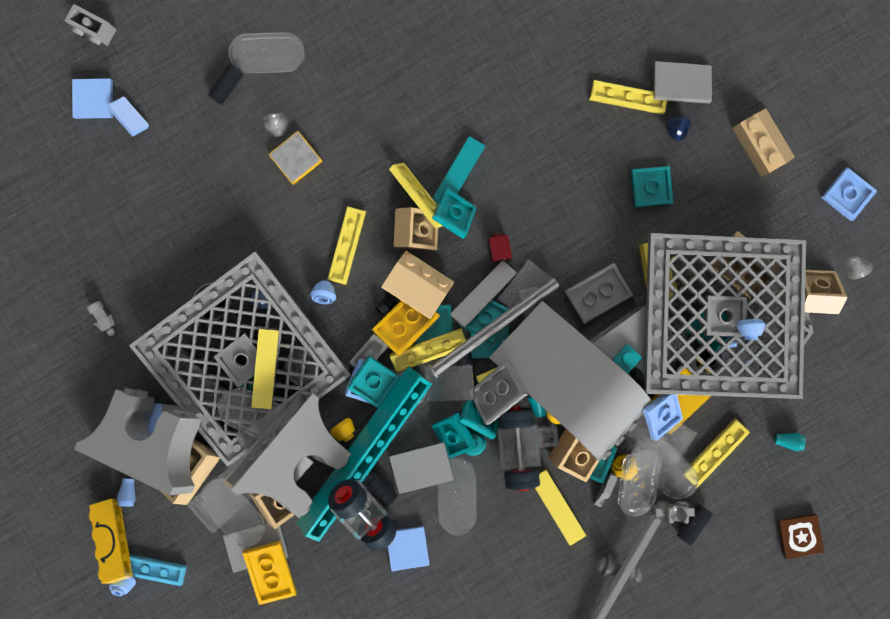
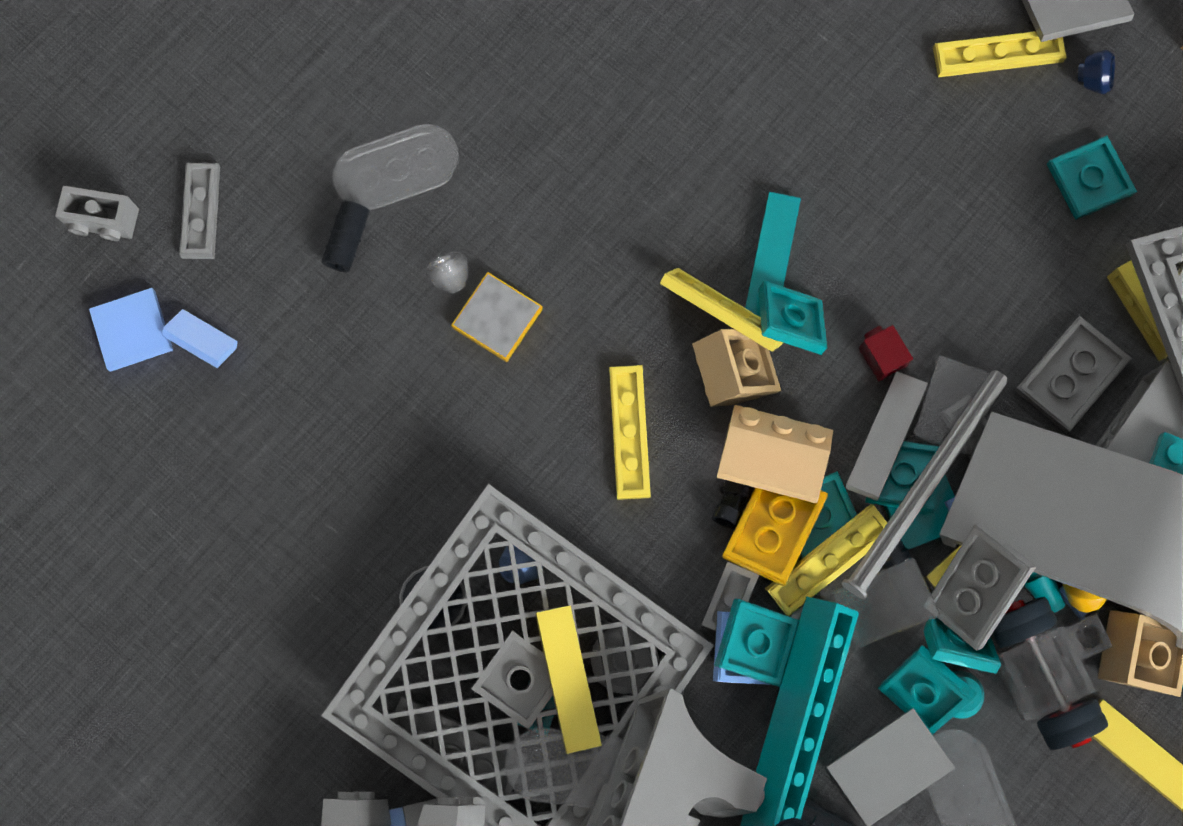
camera: 15 degrees left, 10 degrees down
(104, 322) = (258, 695): light grey piece -> none
(150, 42) = (199, 211): none -> light grey tile
(323, 293) = (619, 521): light blue cone -> none
(343, 430) = (736, 743): yellow cone -> none

